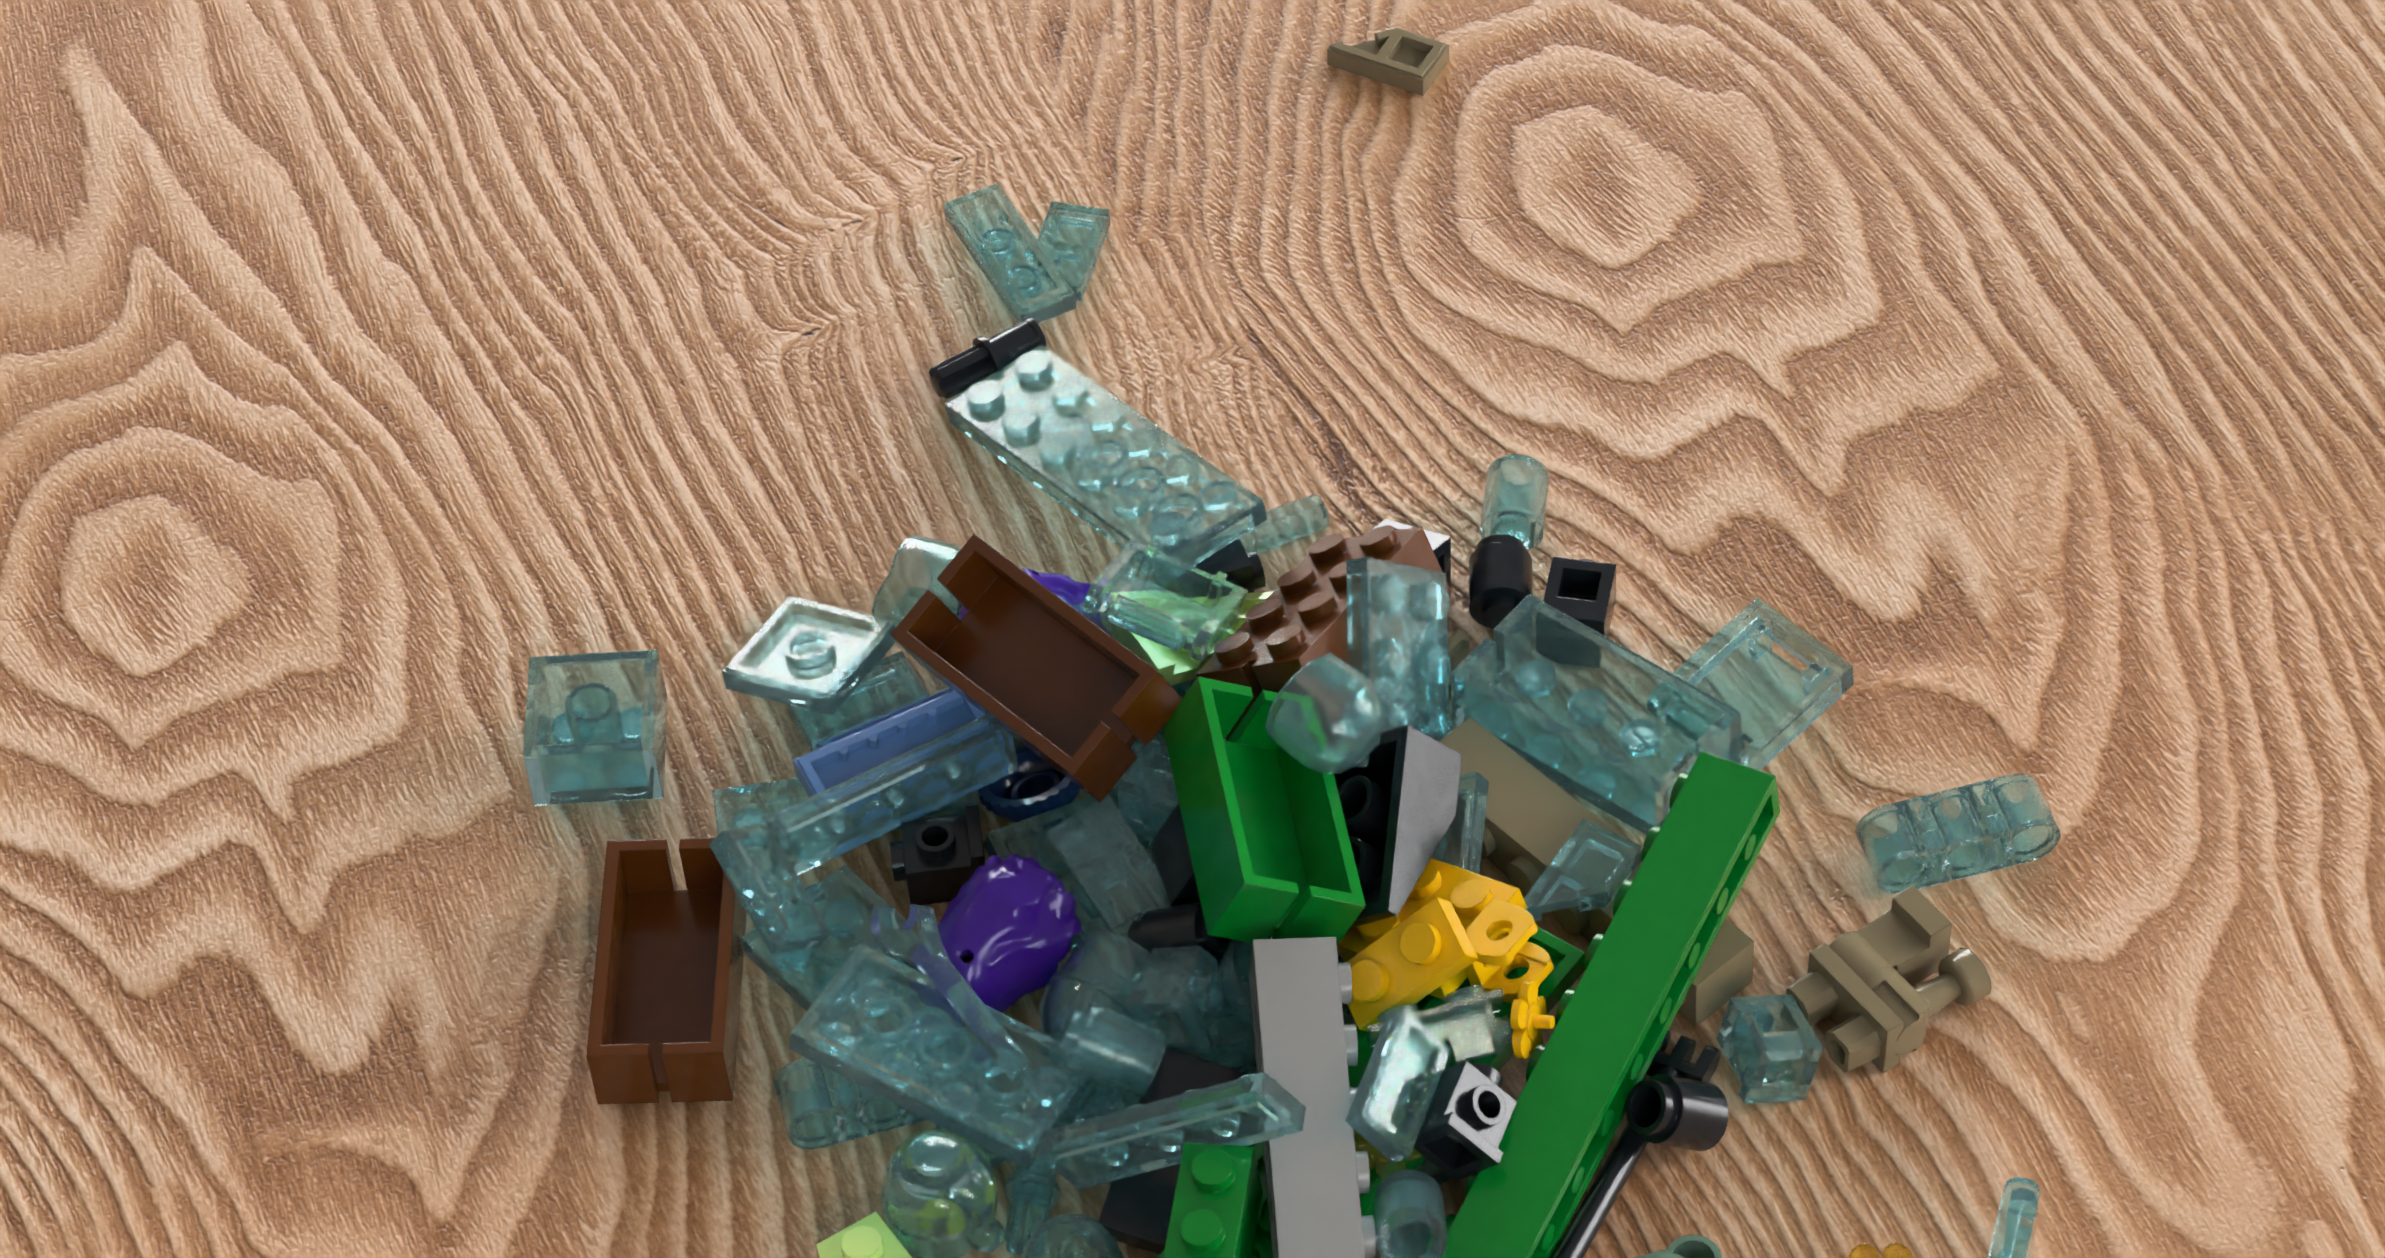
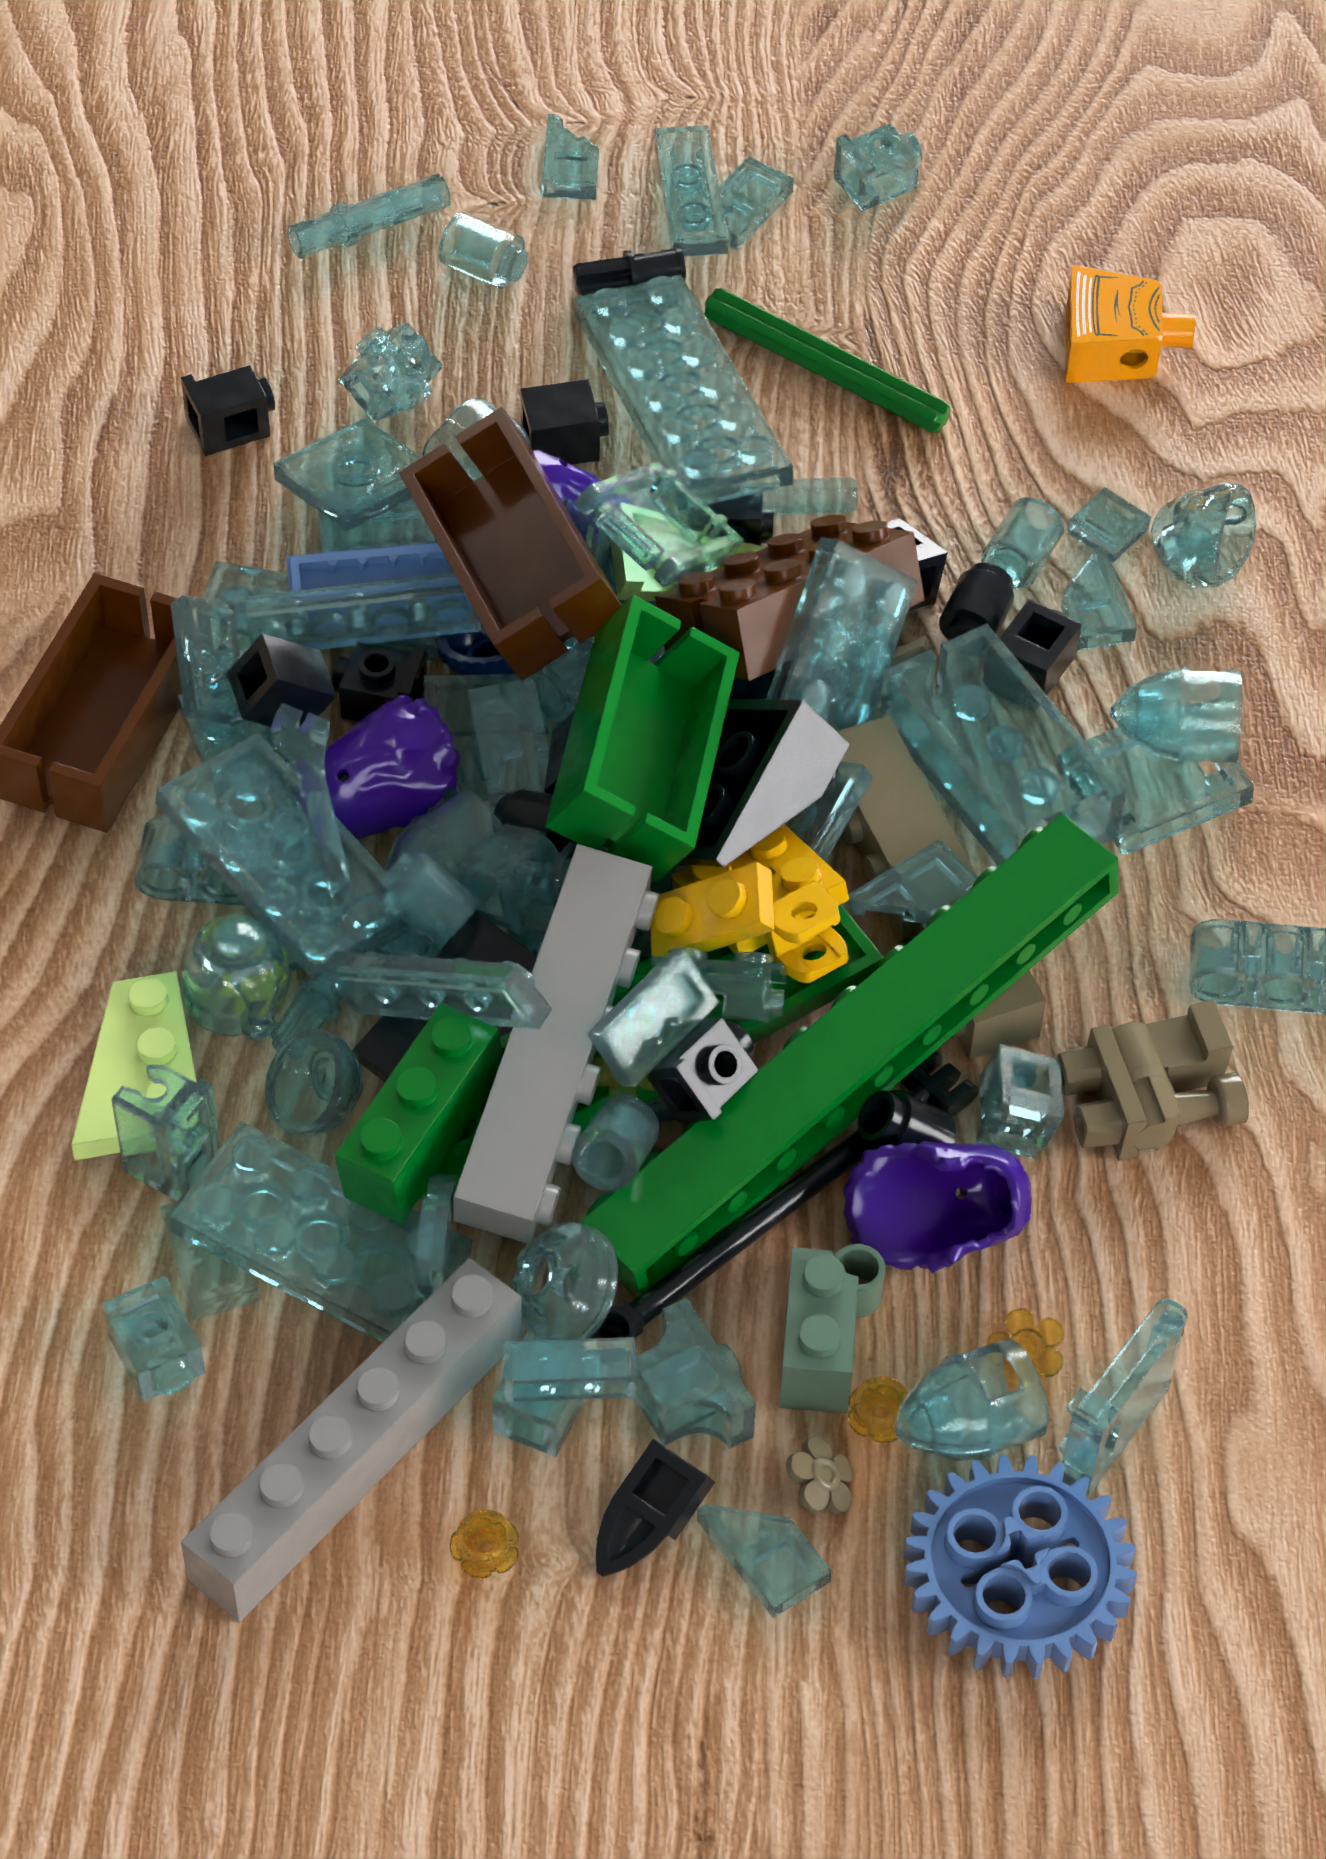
camera: 15 degrees right, 5 degrees up
(595, 727) = (142, 475): clear light blue brick -> none
(646, 621) = (228, 409): none -> black brick
(673, 400) = (349, 223): none -> clear light blue pin
(798, 539) = (391, 371): none -> clear light blue brick
(829, 384) = (483, 250): none -> clear light blue brick
(849, 882) = (280, 673): none -> black brick
(867, 267) = (568, 164): none -> clear light blue tile
(1003, 522) = (564, 420): none -> black brick
(1196, 161) = (877, 165): none -> clear light blue brick
(1230, 384) = (827, 360): none -> green axle
(1328, 716) = (731, 667): clear light blue helmet -> none
(1393, 59) = (1105, 128): dark tan tile -> none
(1505, 257) = (1118, 326): none -> light orange torso
(1528, 1018) = (801, 1000): yellow plant -> none
(1586, 458) = (1109, 523): none -> clear light blue tile
(1614, 537) = (1098, 603): none -> clear light blue tile
(1690, 437) = (1205, 534): none -> clear light blue piece
(1711, 1188) = (909, 1208): none -> dark purple piece
(1764, 617) = (1184, 714): none -> clear light blue helmet

